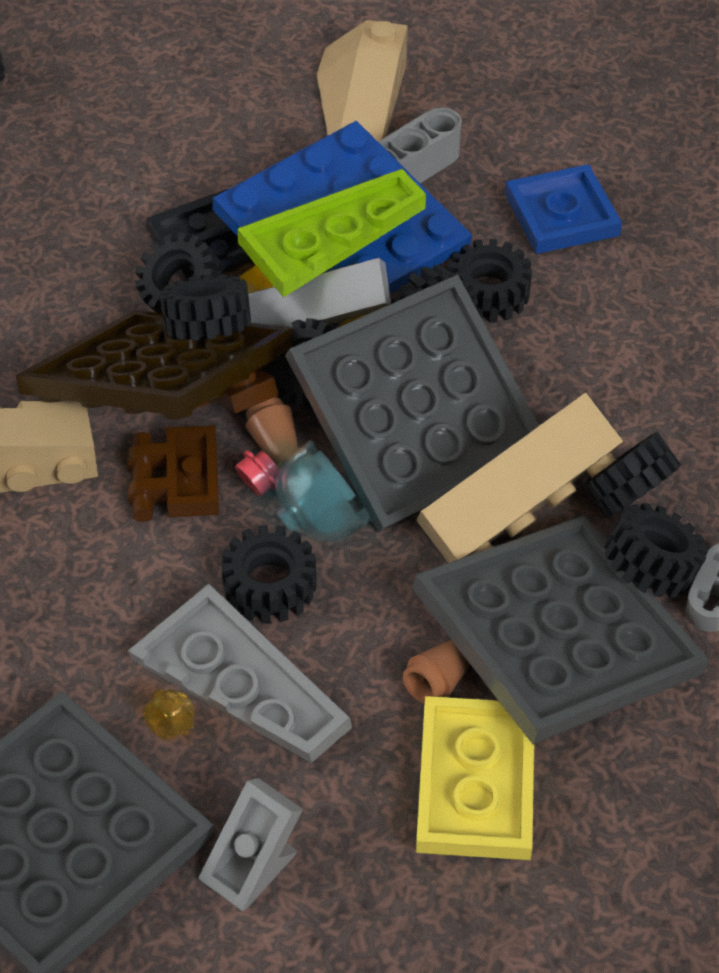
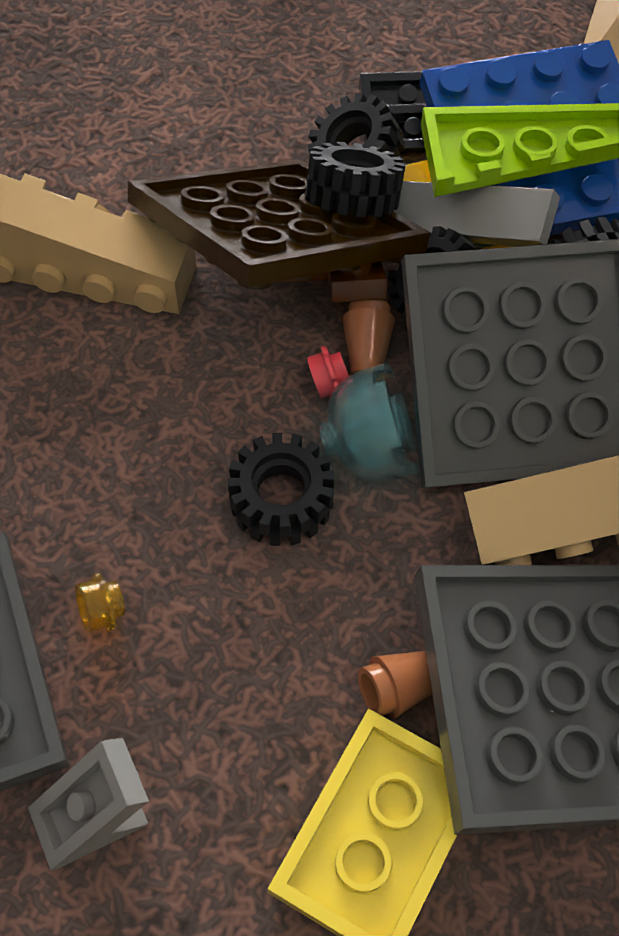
camera: 25 degrees right, 10 degrees up
(190, 478) = (262, 347): reddish brown plate -> none
(238, 671) = (192, 587): light grey wing -> none

